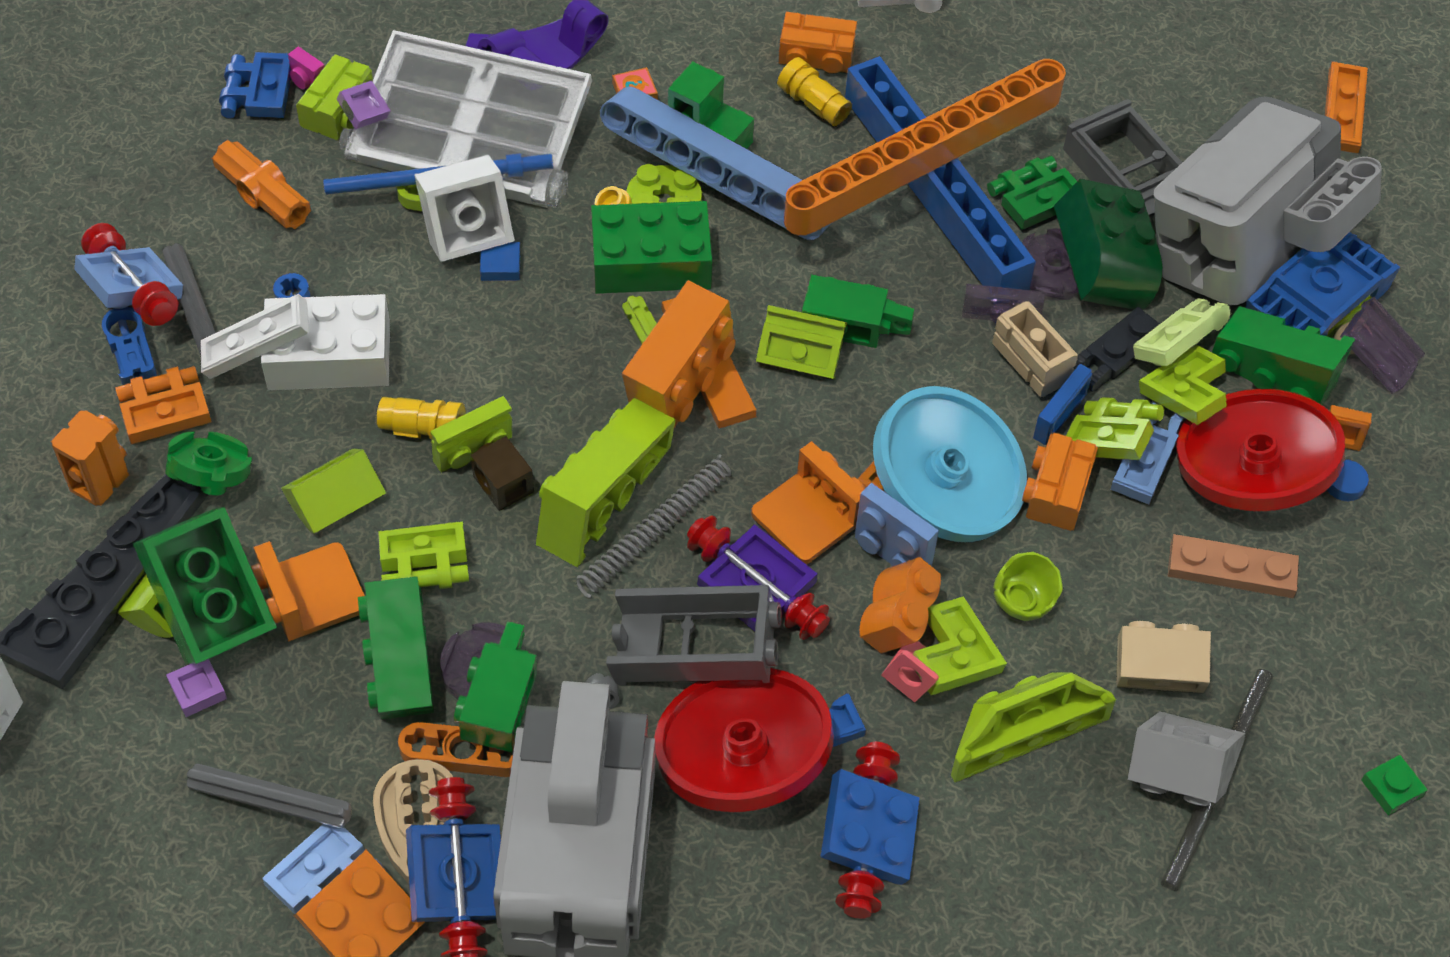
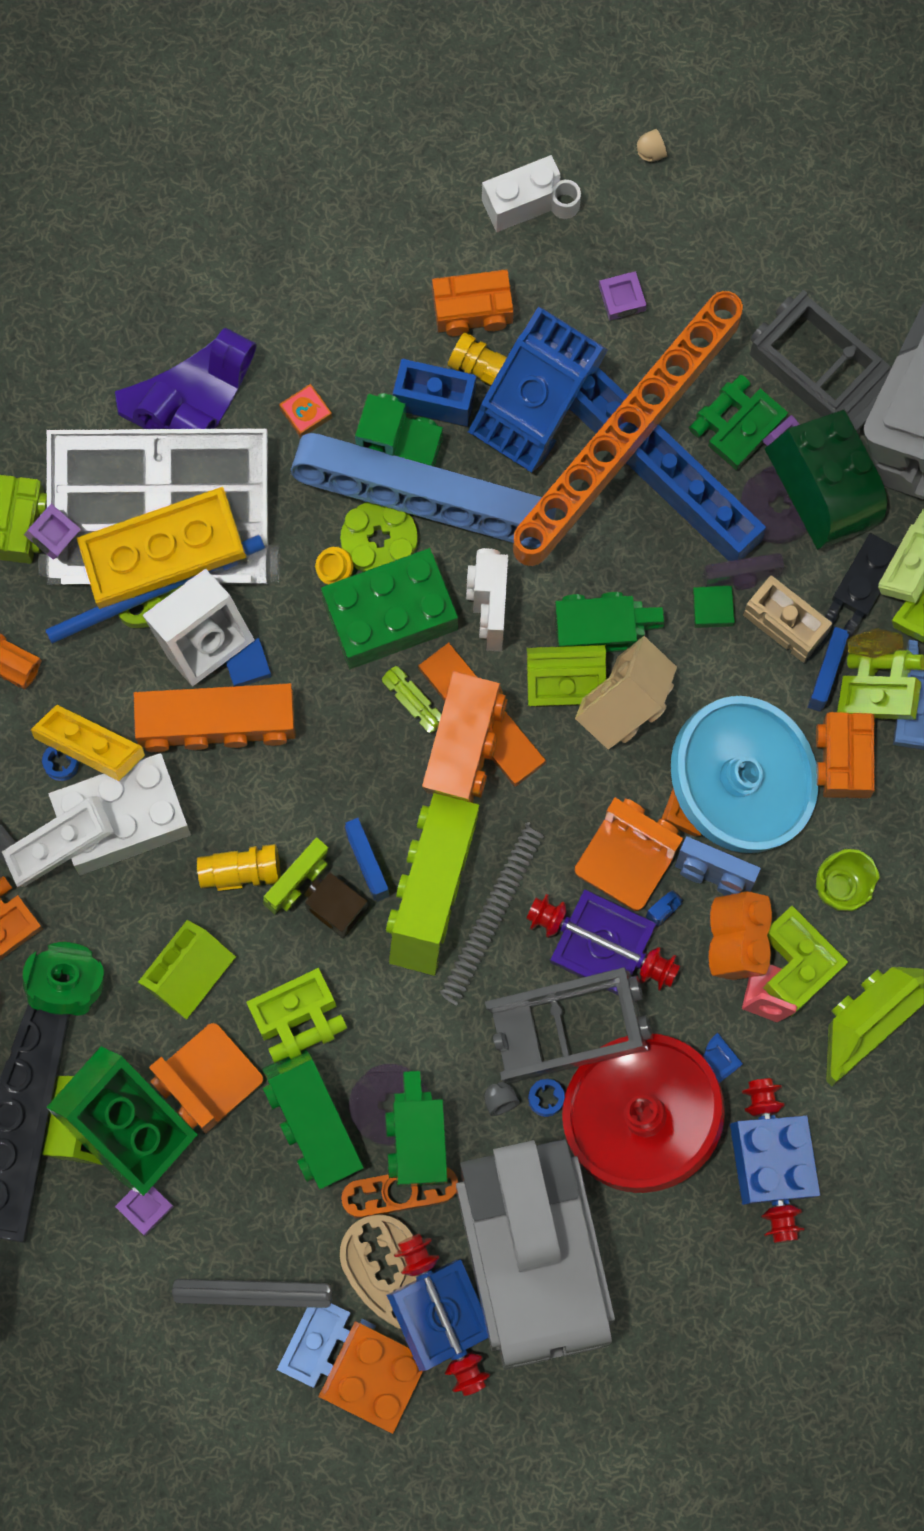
camera: 15 degrees left, 20 degrees up
(322, 273) = (88, 742): none -> yellow tile
(448, 138) = (161, 547): none -> yellow tile
(451, 286) = (214, 716): none -> orange brick
(547, 438) = (366, 860): none -> blue tile
(649, 691) = (534, 1100): none -> blue bush
(750, 254) = (488, 590): none -> white plate
(760, 93) = (435, 392): none -> blue brick
(830, 565) = (664, 908): none -> blue tile
(851, 99) = (536, 389): none -> blue plate
(860, 361) = (629, 696): none -> tan brick
(957, 72) = (622, 295): none -> medium lavender plate
(964, 329) = (713, 606): none -> green tile
(1116, 390) = (875, 643): none -> clear yellow tile

